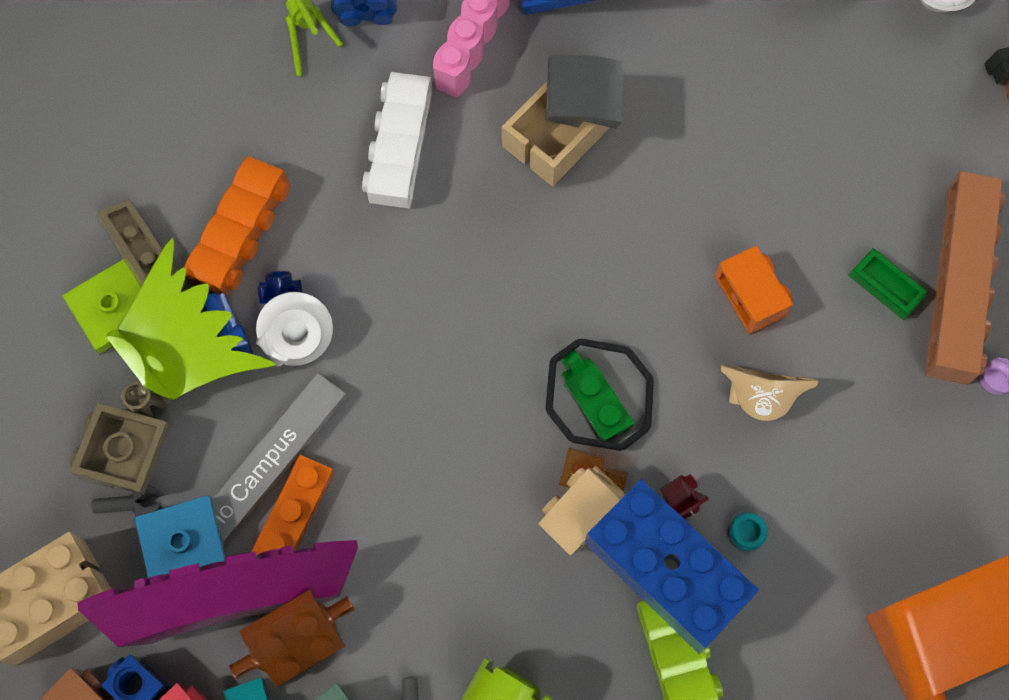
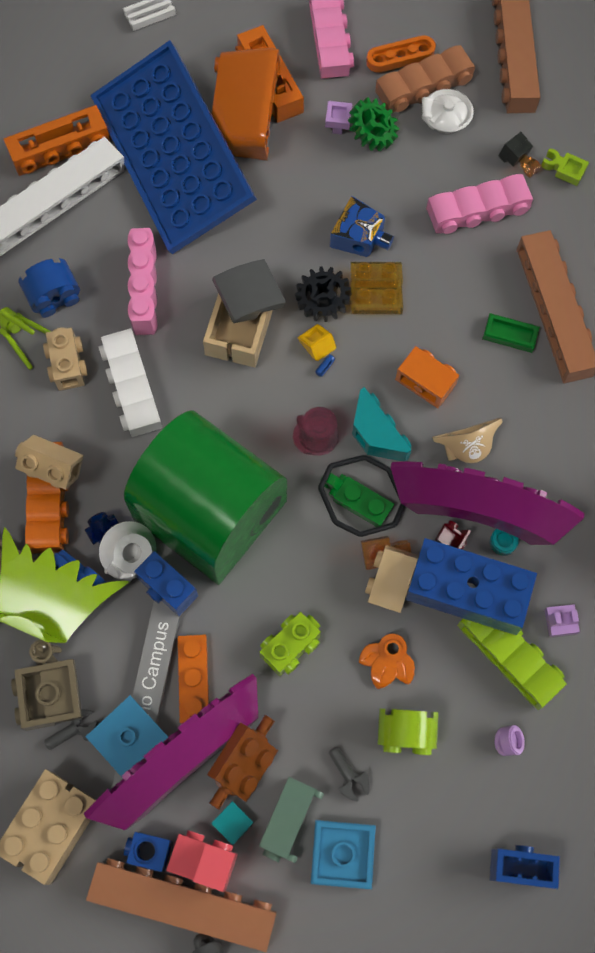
camera: 30 degrees left, 0 degrees up
(253, 185) = (48, 462): none -> tan brick
(313, 387) = (166, 584): none -> blue brick
(340, 79) = (63, 352): none -> tan brick
(408, 300) = (203, 494): none -> green brick
(424, 527) = (297, 636): none -> lime brick
(524, 611) = (387, 665): none -> orange plate
(584, 293) = (316, 432): none -> clear pink hat
(637, 221) = (324, 366): none -> blue piece
(643, 190) = (317, 342): none -> yellow slope
(658, 325) = (377, 430): none -> teal slope
(675, 138) = (323, 295): none -> black gear
(745, 472) = (484, 500): none -> magenta brick
(747, 156) = (376, 287): none -> clear yellow slope
(761, 79) = (359, 230): none -> blue torso
(770, 665) = (562, 620): none -> lavender tile
(929, 110) = (479, 203): none -> bright pink brick

